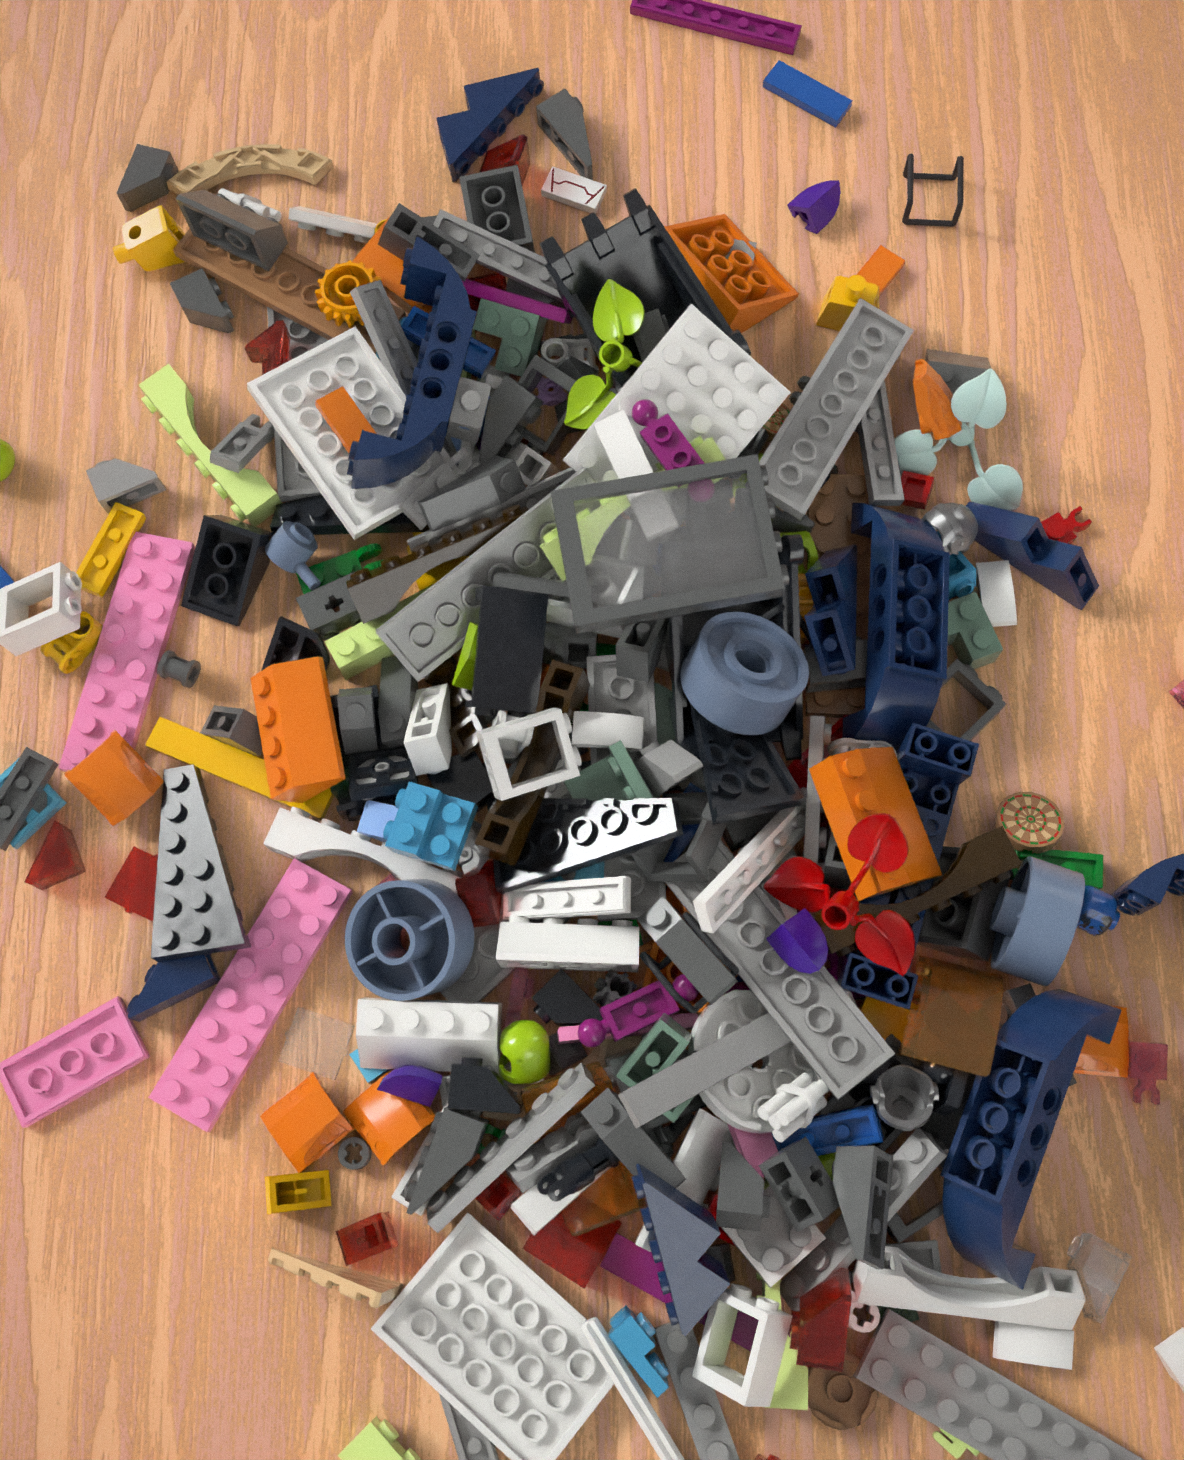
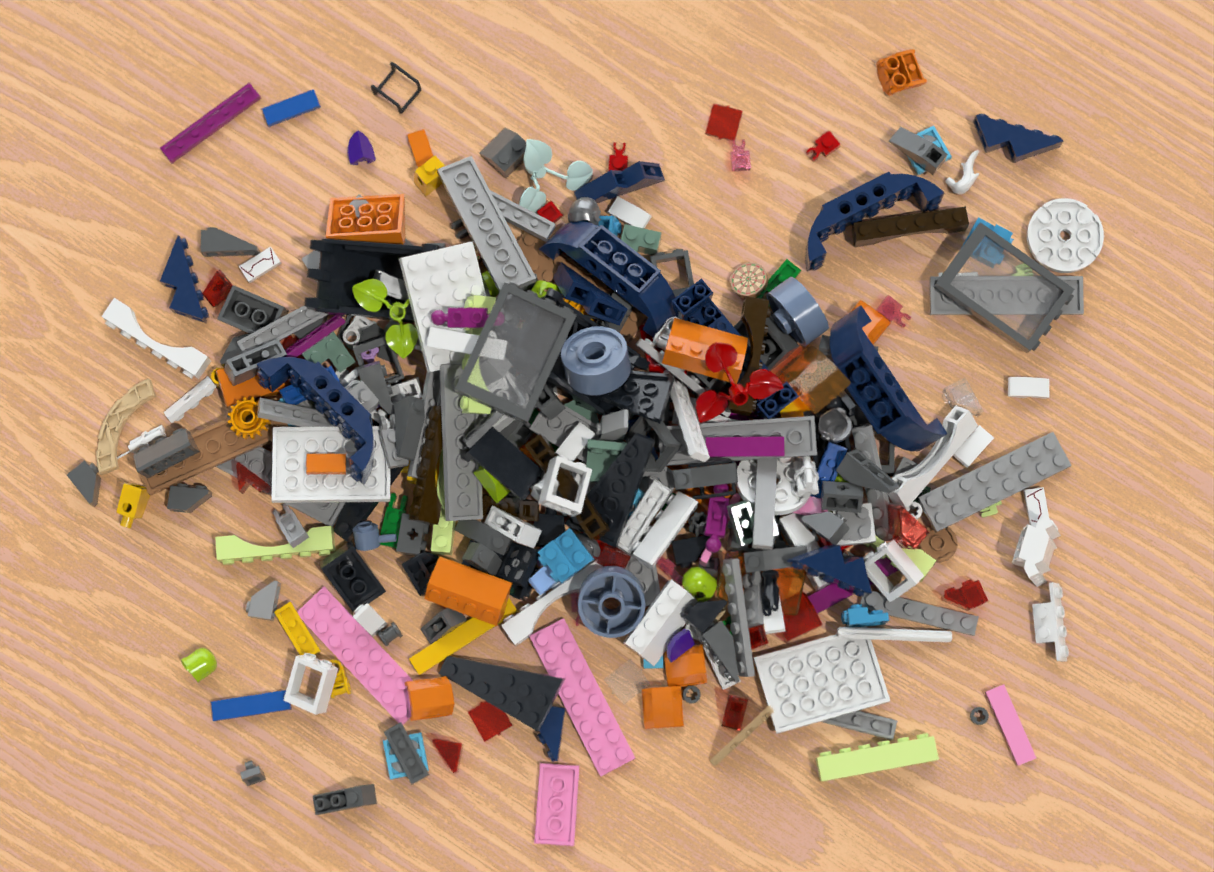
camera: 55 degrees left, 5 degrees up
(178, 626) = (369, 619): none -> white slope
(297, 1191) = (692, 730): yellow slope -> none
(388, 88) = (188, 358): none -> white arch
(772, 979) = (746, 446): none -> magenta tile
(800, 943) = (738, 422): dark purple brick -> none
(934, 402) = (518, 174): orange slope -> none
(1098, 912) = (810, 280): blue head -> none

